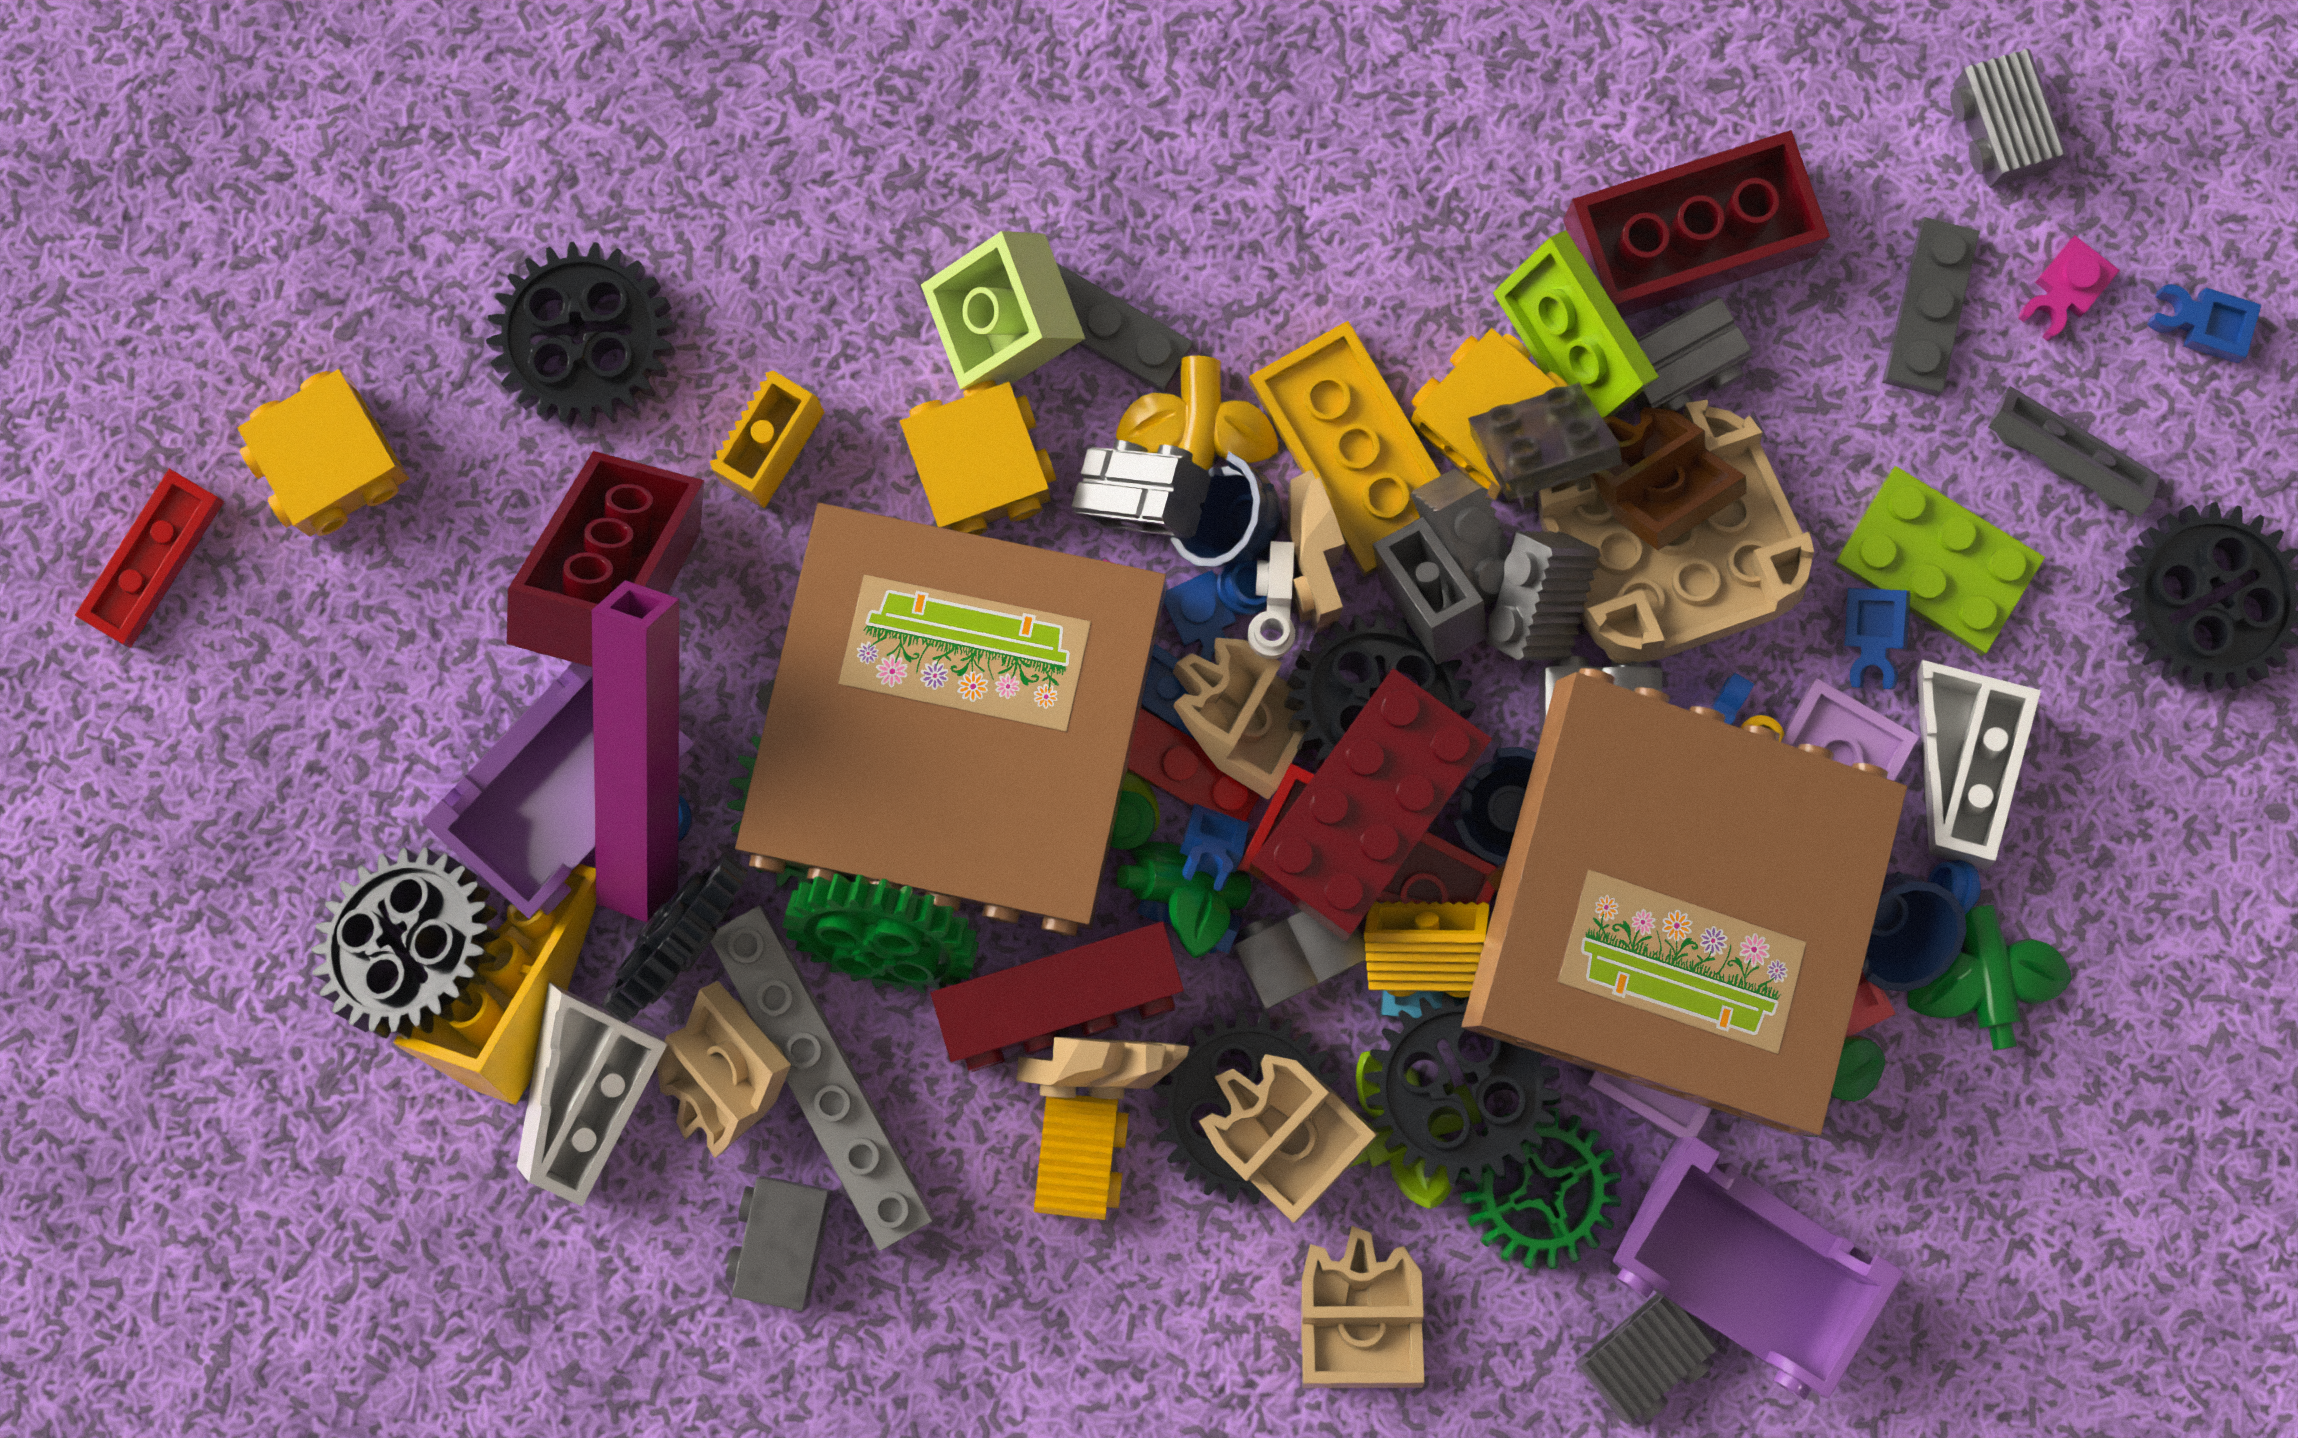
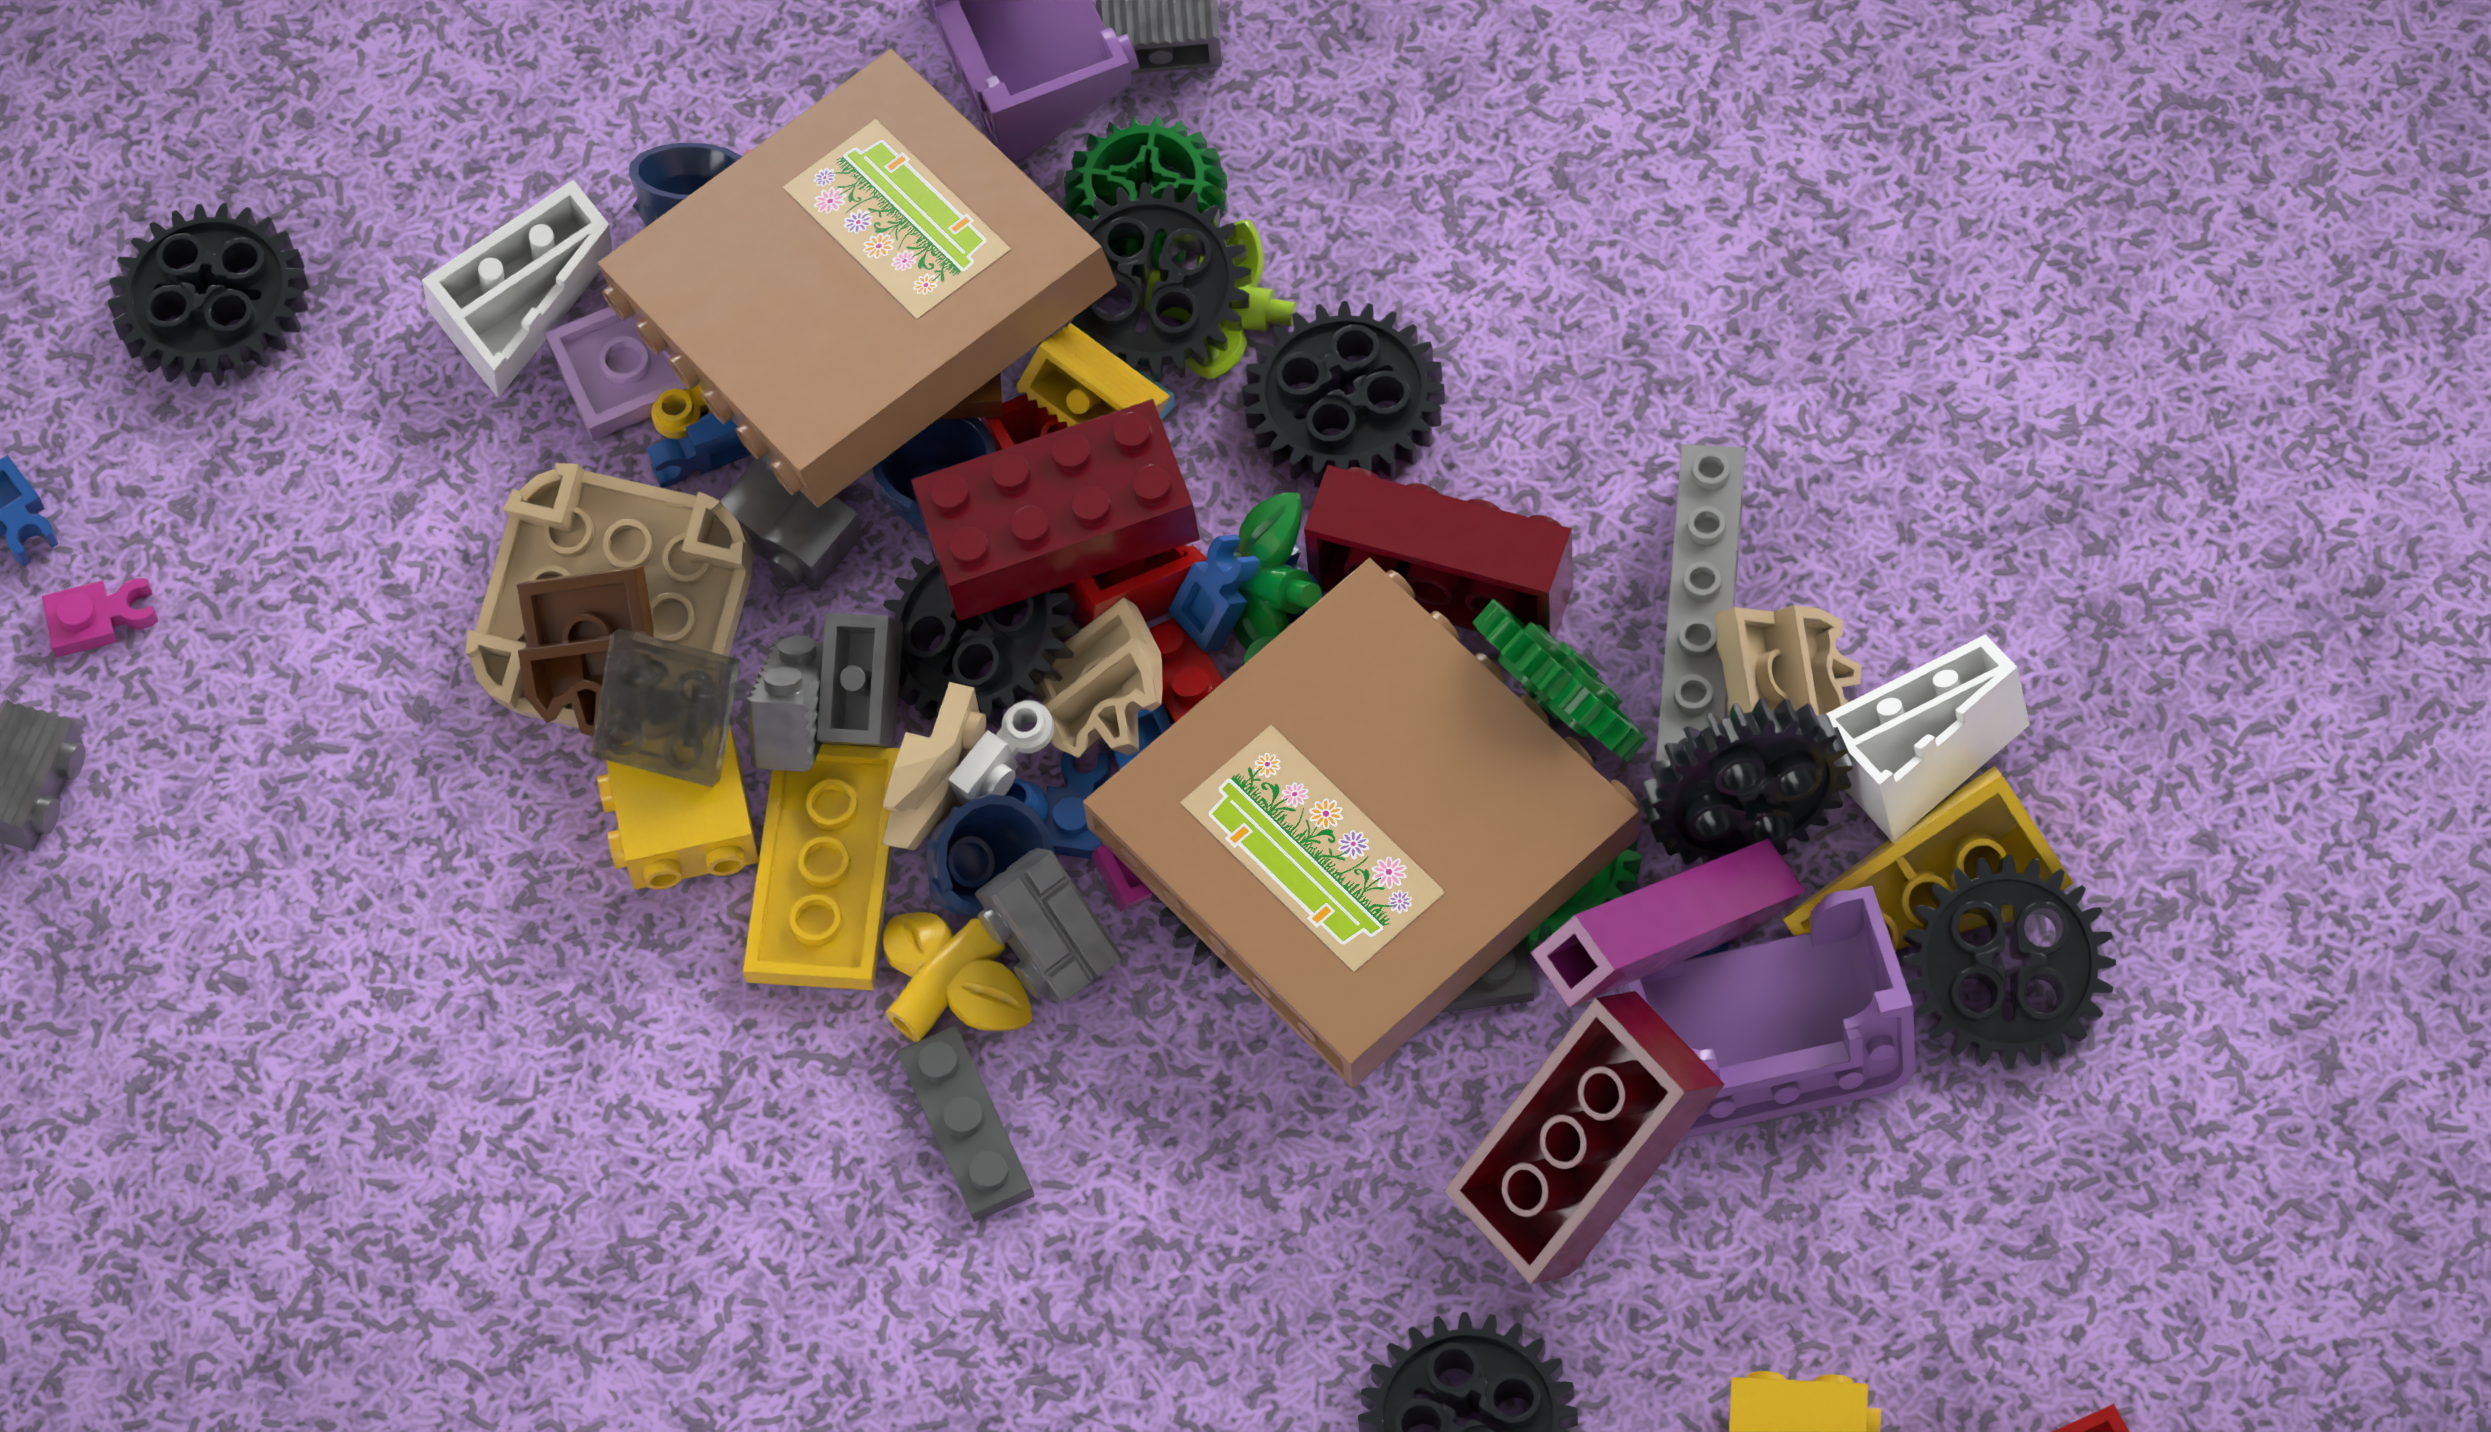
camera: 140 degrees left, 20 degrees down
(767, 438) = (1358, 1195): yellow brick -> none
(779, 1242) = (1830, 526): flat silver brick -> none
(979, 458) = (1175, 1057): yellow brick -> none
(1003, 309) = (1052, 1158): yellowish green brick -> none
(1078, 1157) = (1519, 441): yellow brick -> none
(1101, 1065) = (1417, 450): tan plate -> none
(1287, 1133) = (1325, 325): tan plate -> none
(1293, 956) = (1223, 479): flat silver brick -> none
(1361, 1318) = (1372, 185): tan plate -> none
(1542, 595) = (768, 607): flat silver brick -> none
(1575, 326) = (553, 820): lime plate -> none
(1691, 354) = (476, 755): flat silver brick -> none
(1699, 224) = (372, 847): dark red brick -> none
(1876, 623) = (505, 441): blue plate -> none
(1931, 306) = (224, 672): dark grey plate -> none
(1954, 563) = (403, 468): lime plate -> none
(1960, 879) = (615, 203): blue plate -> none
(1993, 979) = (636, 125): green plant -> none
(2074, 452) = (215, 474): dark grey plate -> none

